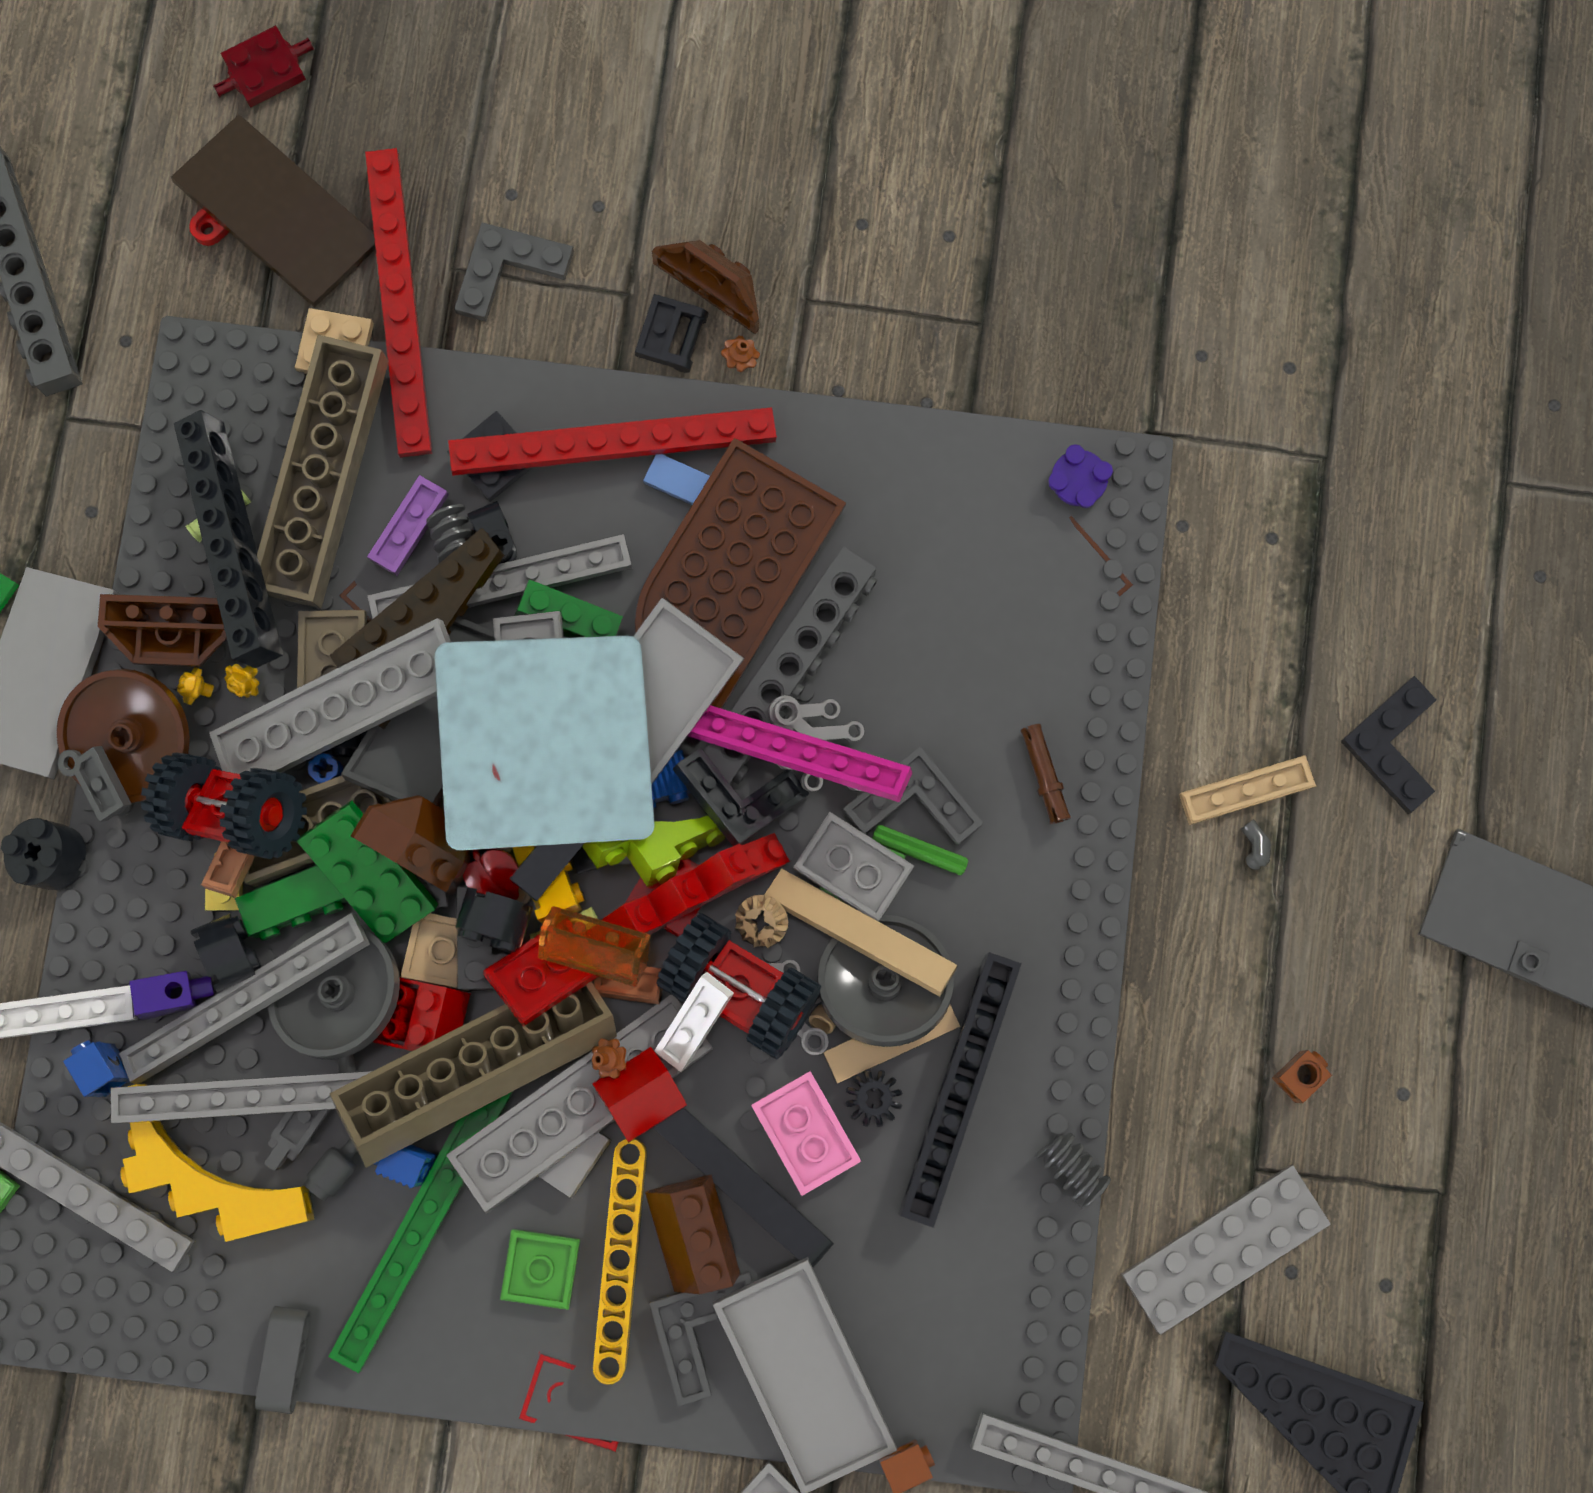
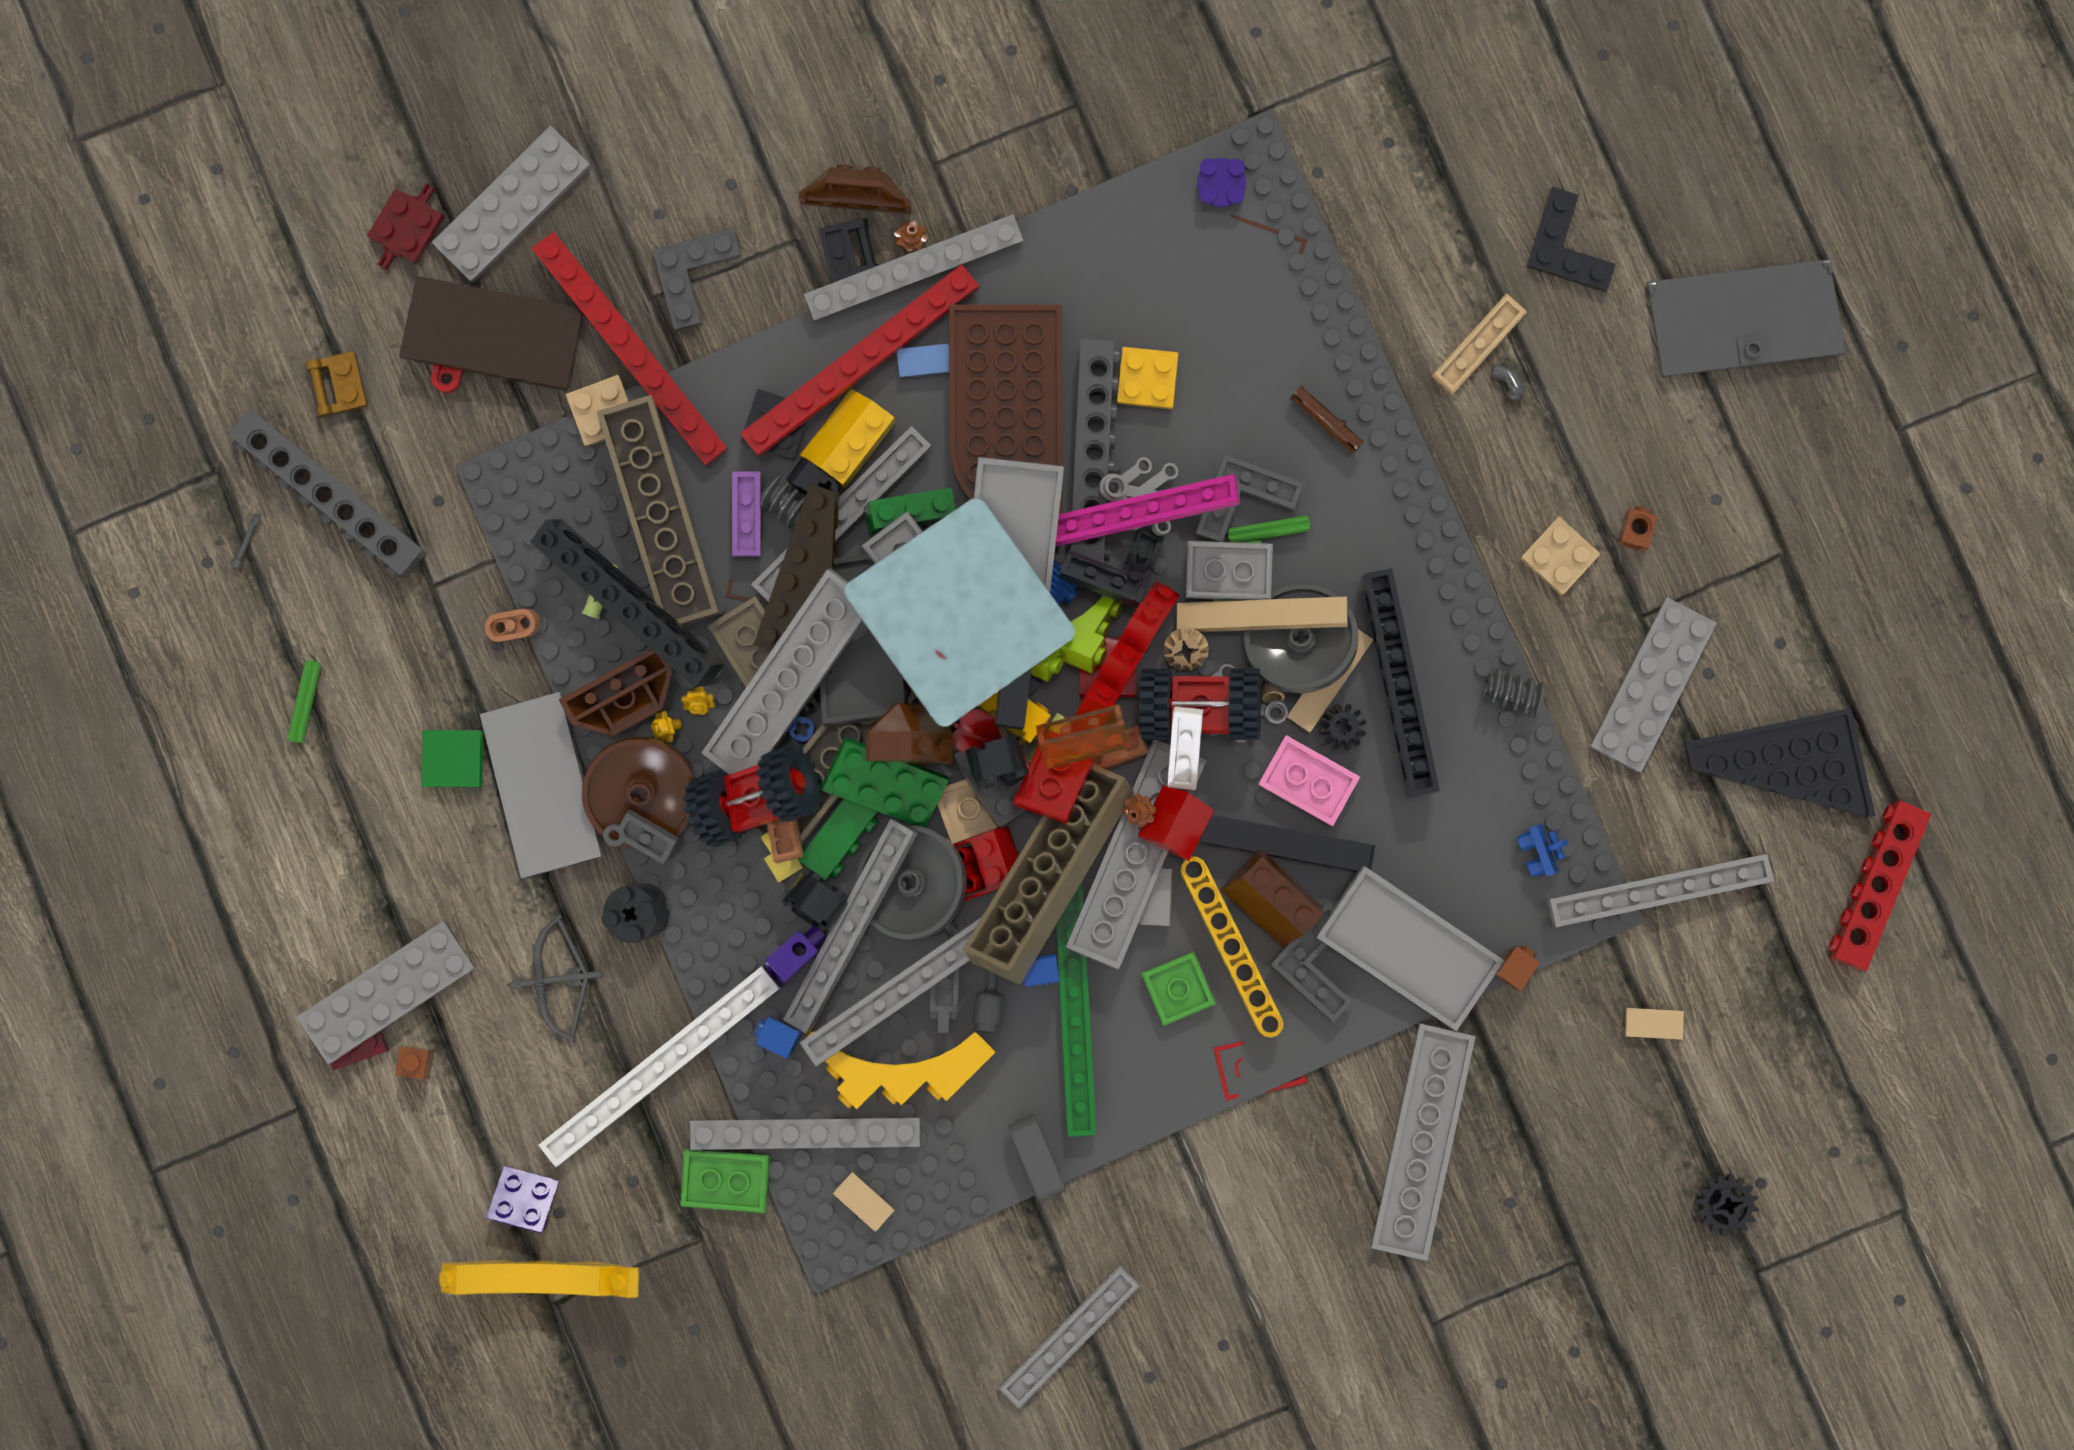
camera: 30 degrees left, 5 degrees up
(80, 1294) = (863, 1201): none -> tan tile
(111, 177) = (345, 380): none -> pearl gold plate
(112, 498) = (514, 625): none -> nougat plate
(375, 104) = (511, 204): none -> light grey plate
(555, 512) = (849, 437): none -> yellow slope
(723, 383) = (913, 267): none -> light grey plate
(889, 626) = (1147, 378): none -> yellow plate
(1003, 1371) = (1537, 838): none -> blue hips
(1205, 1055) = (1560, 556): none -> tan plate

